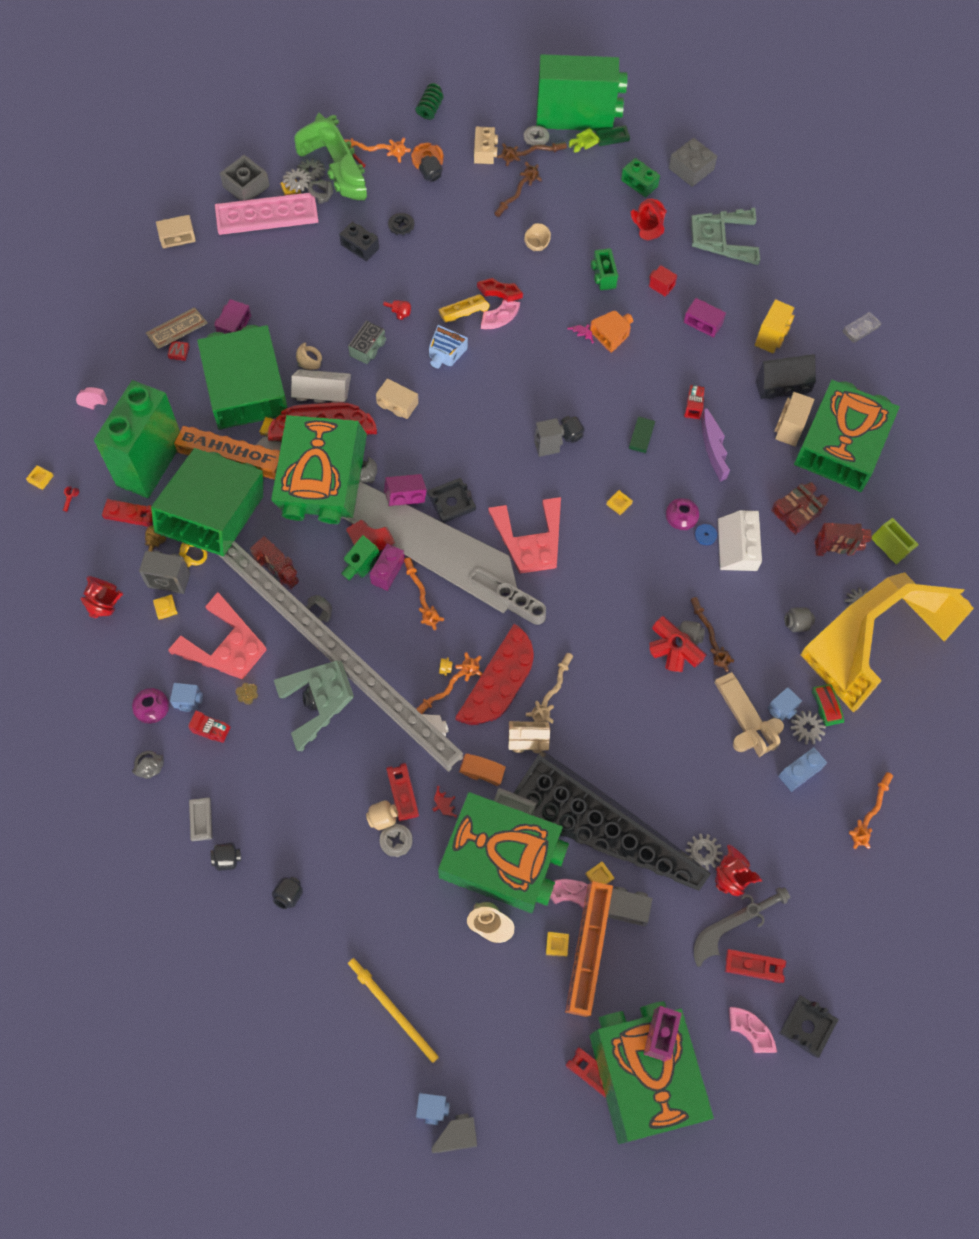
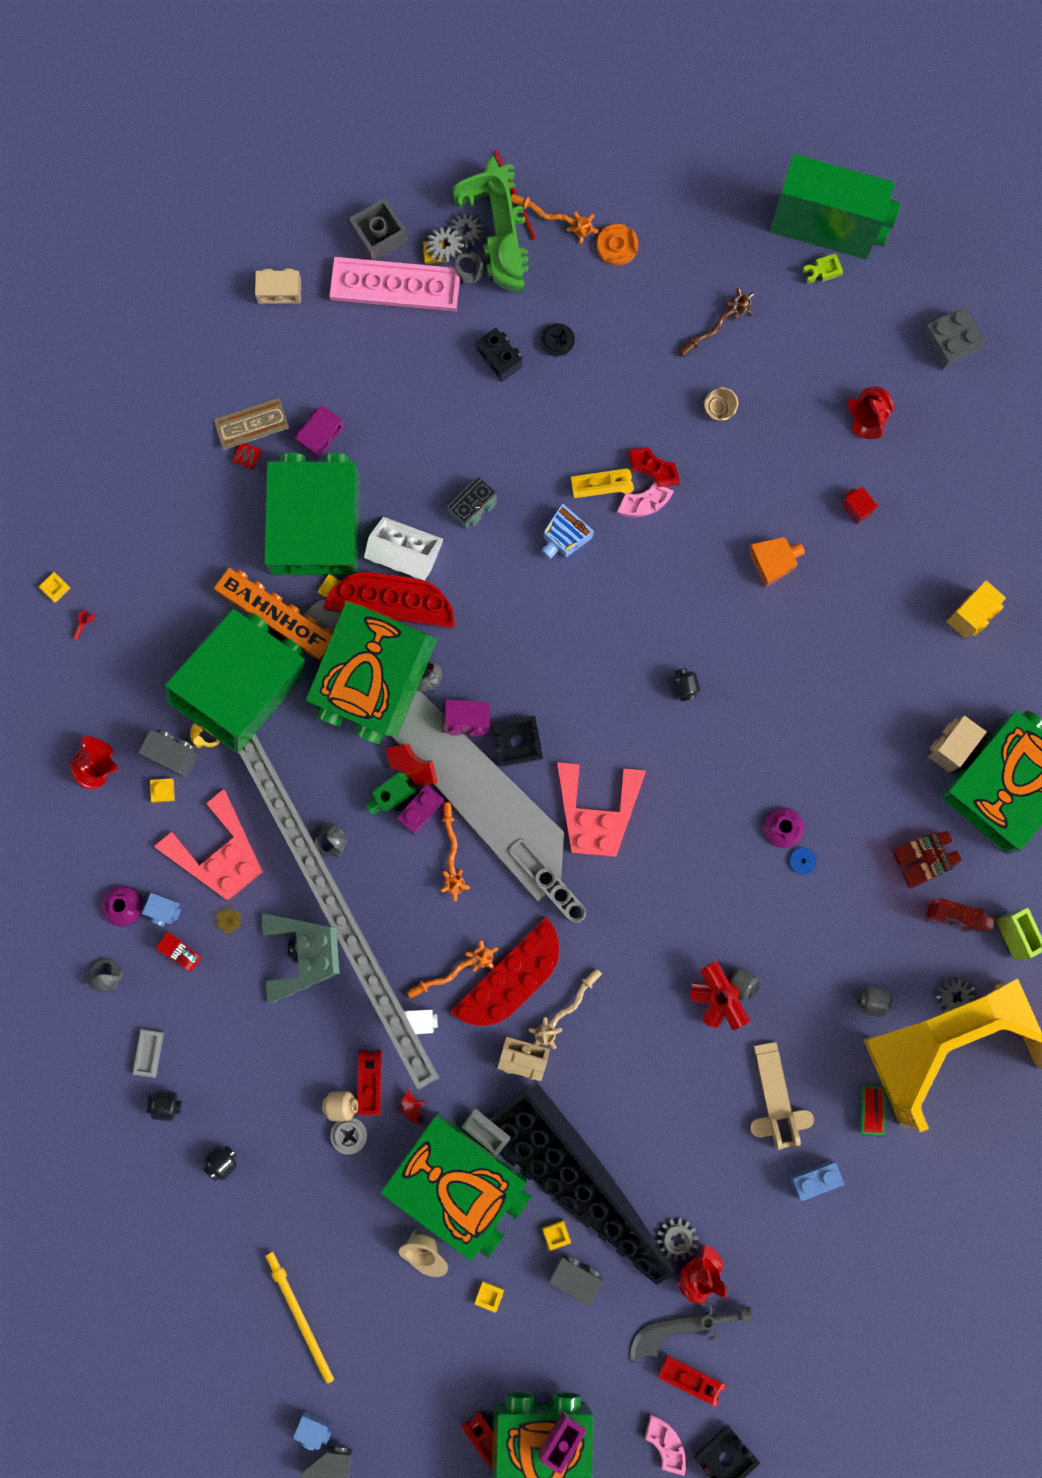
camera: 20 degrees right, 15 degrees up
(91, 397) = (132, 502): bright pink tile -> none
(128, 513) = (145, 660): red plate -> none
(139, 439) = (171, 585): green brick -> none
(153, 539) = (162, 705): pearl gold piece -> none
(273, 559) = (295, 774): clear red hips -> none
(304, 360) = (390, 509): tan piece -> none
(397, 399) = (487, 592): tan brick -> none
(401, 308) = (526, 463): red piece -> none
(430, 101) = (641, 163): dark green piece -> none
(430, 168) = (615, 268): black head -> none
(445, 666) = (455, 948): yellow plate -> none
(482, 768) = (463, 1081): orange slope -> none
(484, 145) = (694, 246): tan brick -> none
(510, 154) = (722, 267): reddish brown piece -> none
(531, 132) = (762, 238): light grey gear -> none
(548, 437) = (653, 692): dark grey brick -> none
(569, 891) = (524, 1244): bright pink tile -> none
(583, 331) = (739, 550): dark pink piece -> none
(589, 949) = (519, 1316): orange brick -> none
(605, 269) = (791, 473): green brick -> none
(612, 135) = (864, 268): dark green tile -> none
(619, 502) = (713, 793): yellow tile -> none
(640, 177) = (879, 344): green brick -> none
(642, 434) = (768, 711): dark green tile -> none
(695, 402) = (845, 684): red leg -> none
(704, 317) = (895, 570): magenta brick -> none
(710, 235) = (941, 450): sand green wing -> none
(713, 441) = (850, 741): medium lavender slope -> none
(721, 657) = (769, 1021): reddish brown piece -> none
(740, 541) = (838, 883): white slope -> none
(784, 705) = (822, 1099): medium blue brick -> none
(786, 376) = (967, 684): black slope -> none
(814, 732) = (836, 1121): light grey gear -> none
(861, 834) = (857, 1269): orange piece -> none

